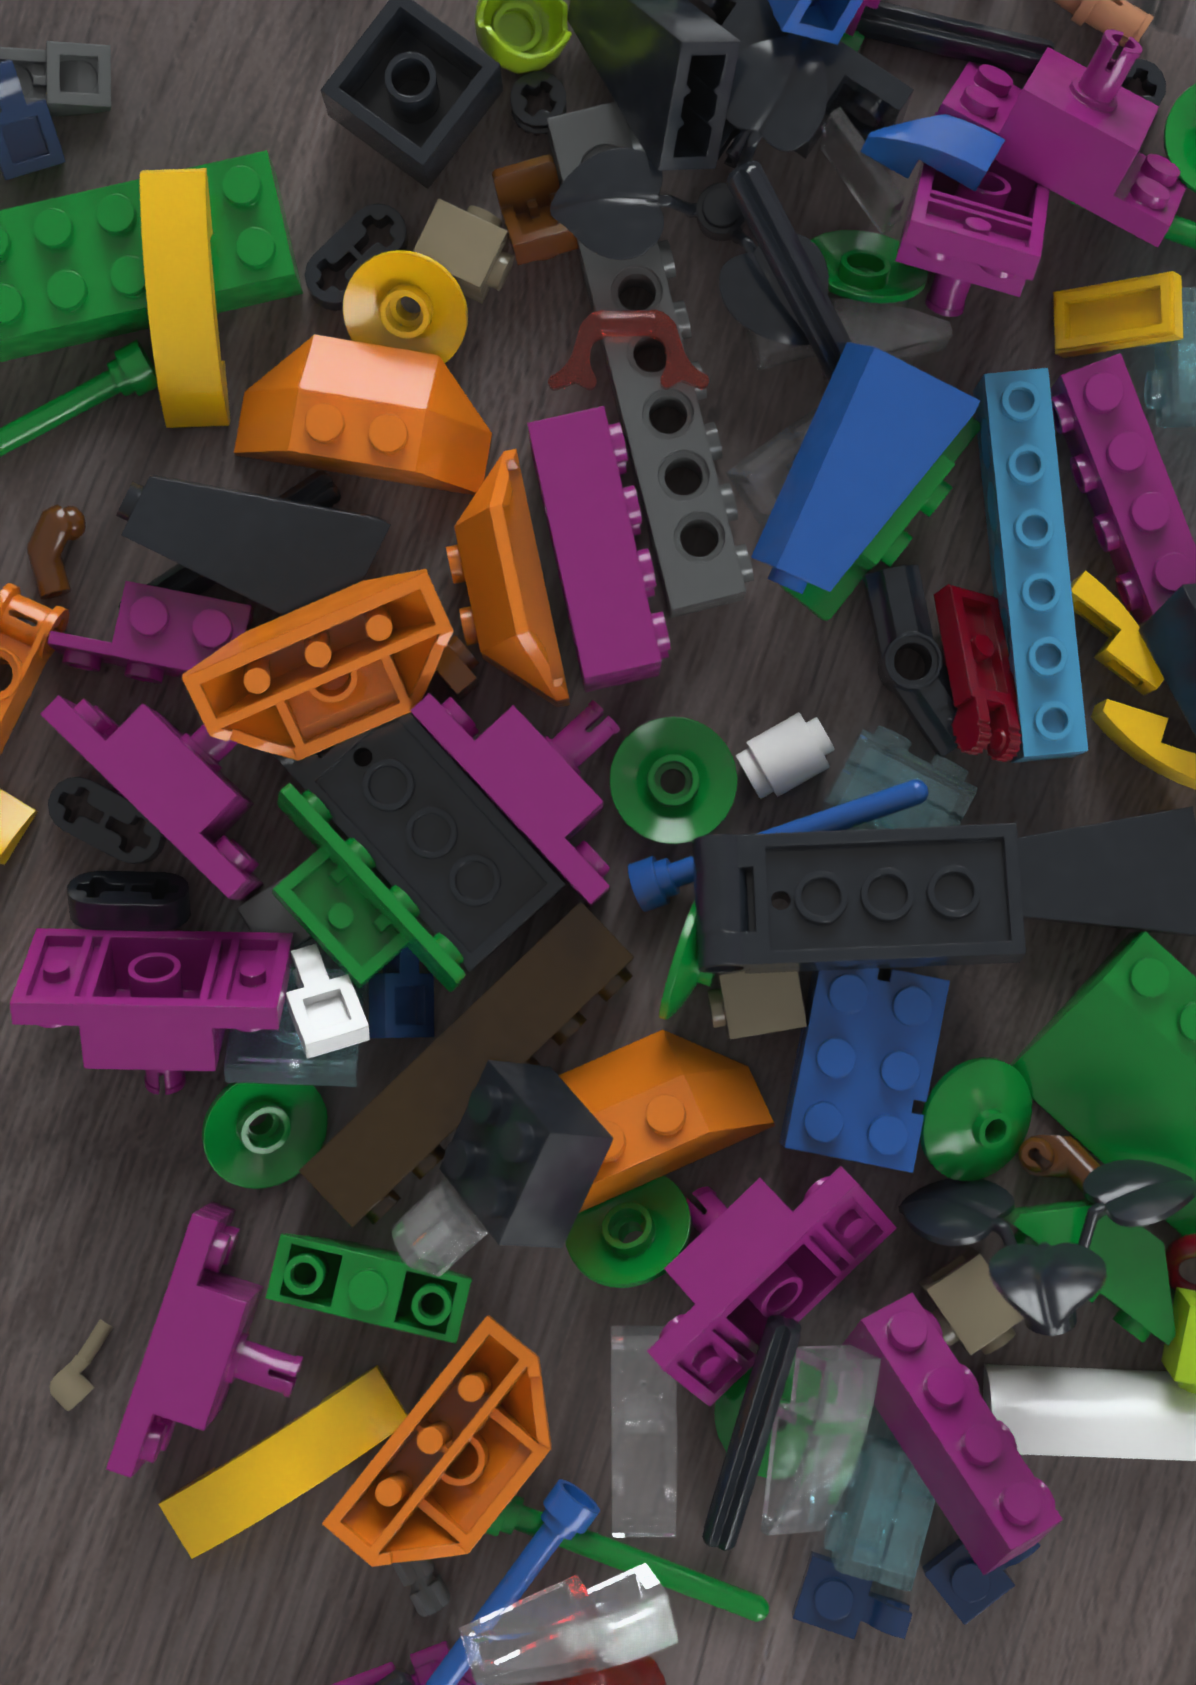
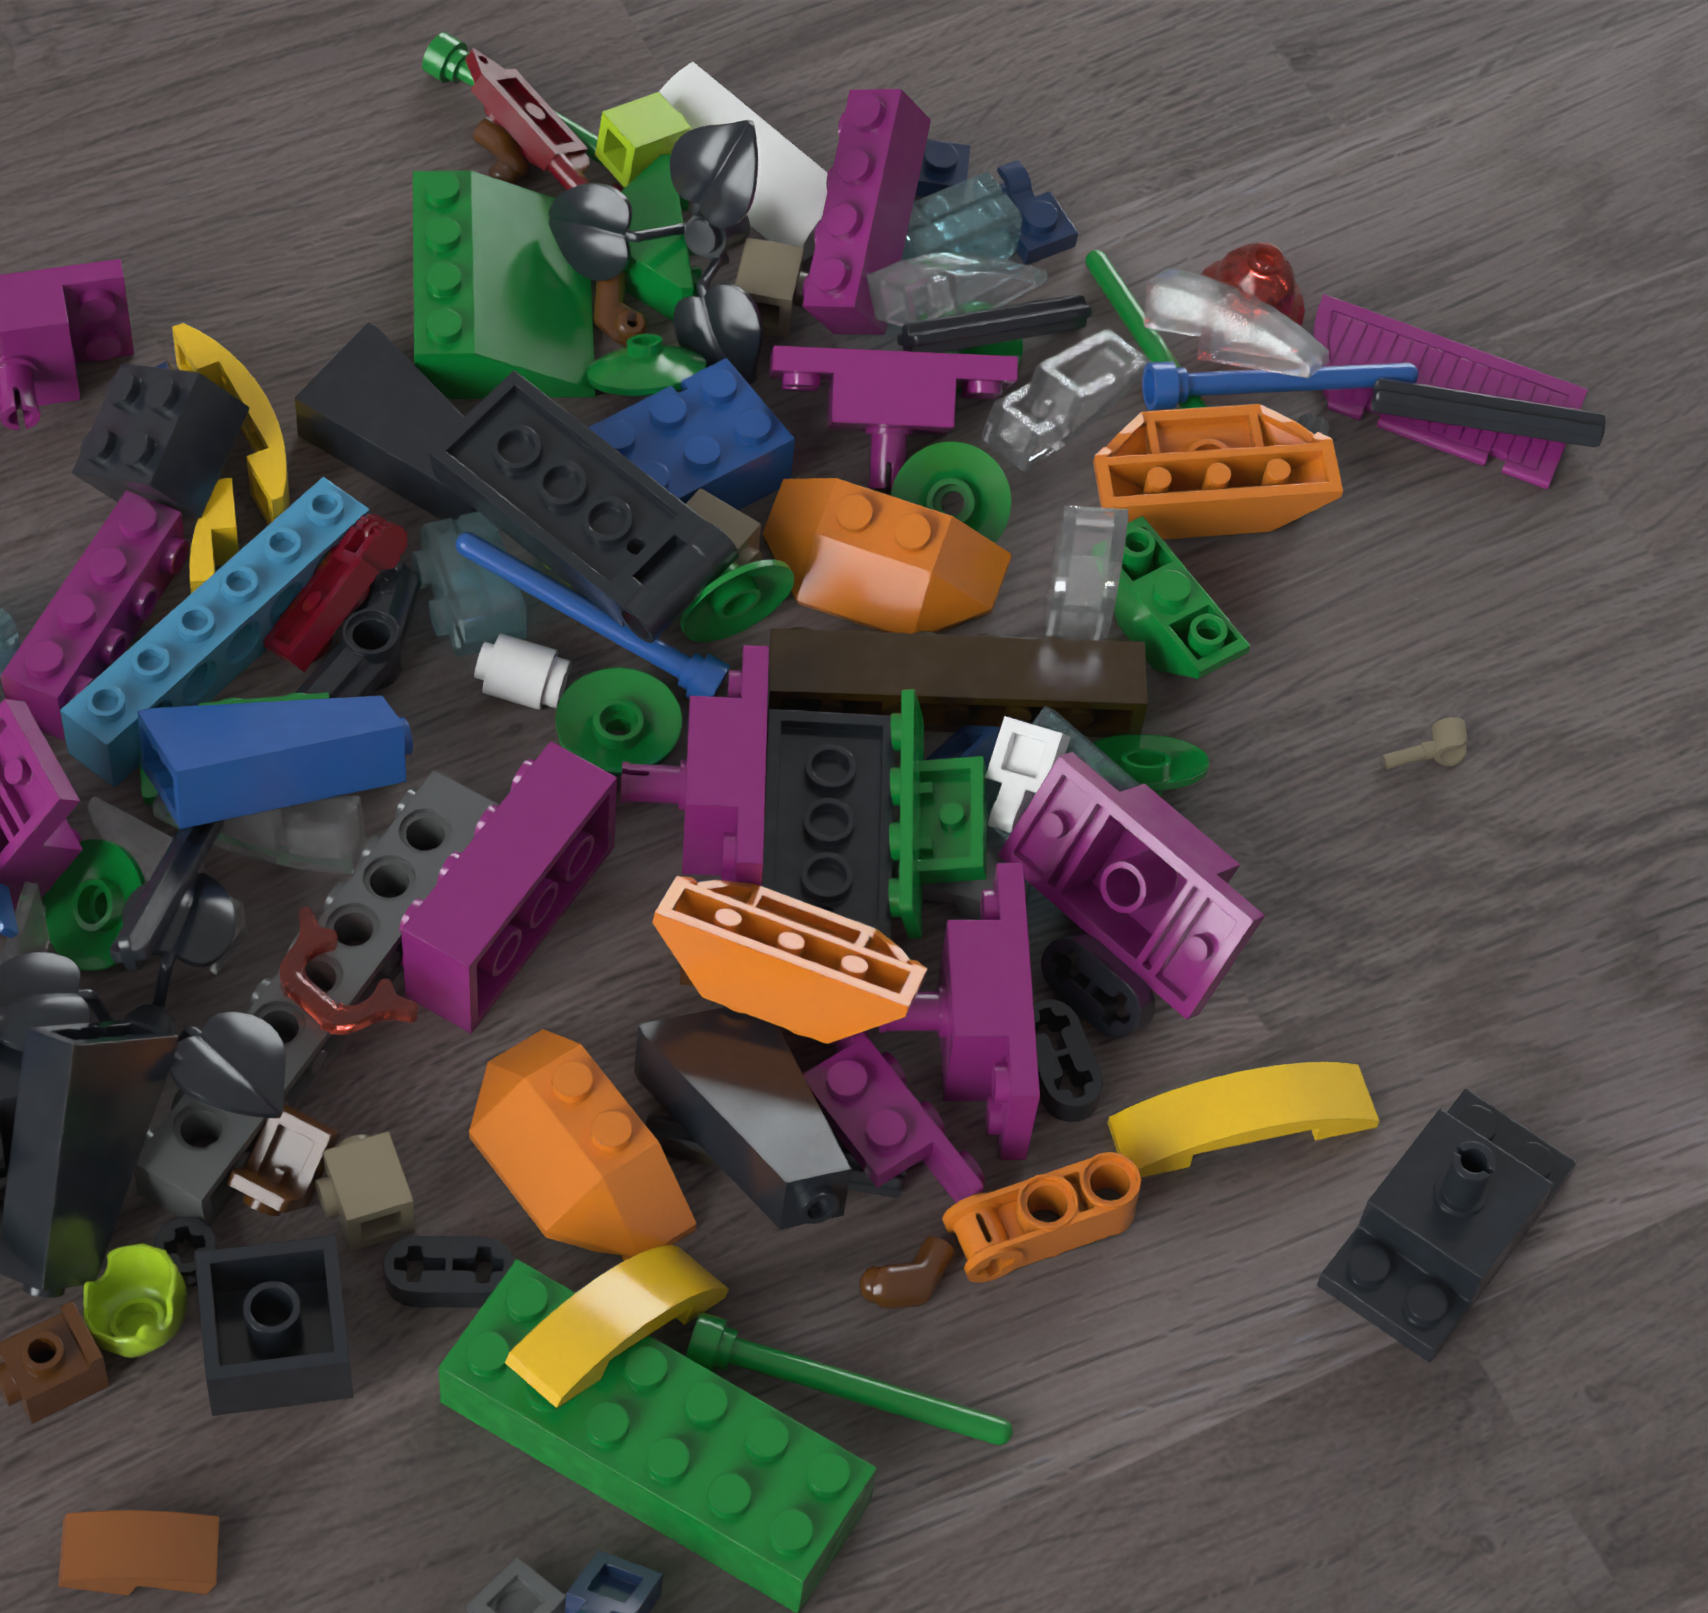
camera: 140 degrees left, 30 degrees down
(198, 1346) = (1333, 667): magenta brick -> none
(284, 1463) = (1339, 569): yellow slope -> none
(375, 309) = (457, 1184): yellow dish -> none
(507, 584) = (589, 947): orange wedge -> none
(525, 1154) = (976, 569): black brick -> none

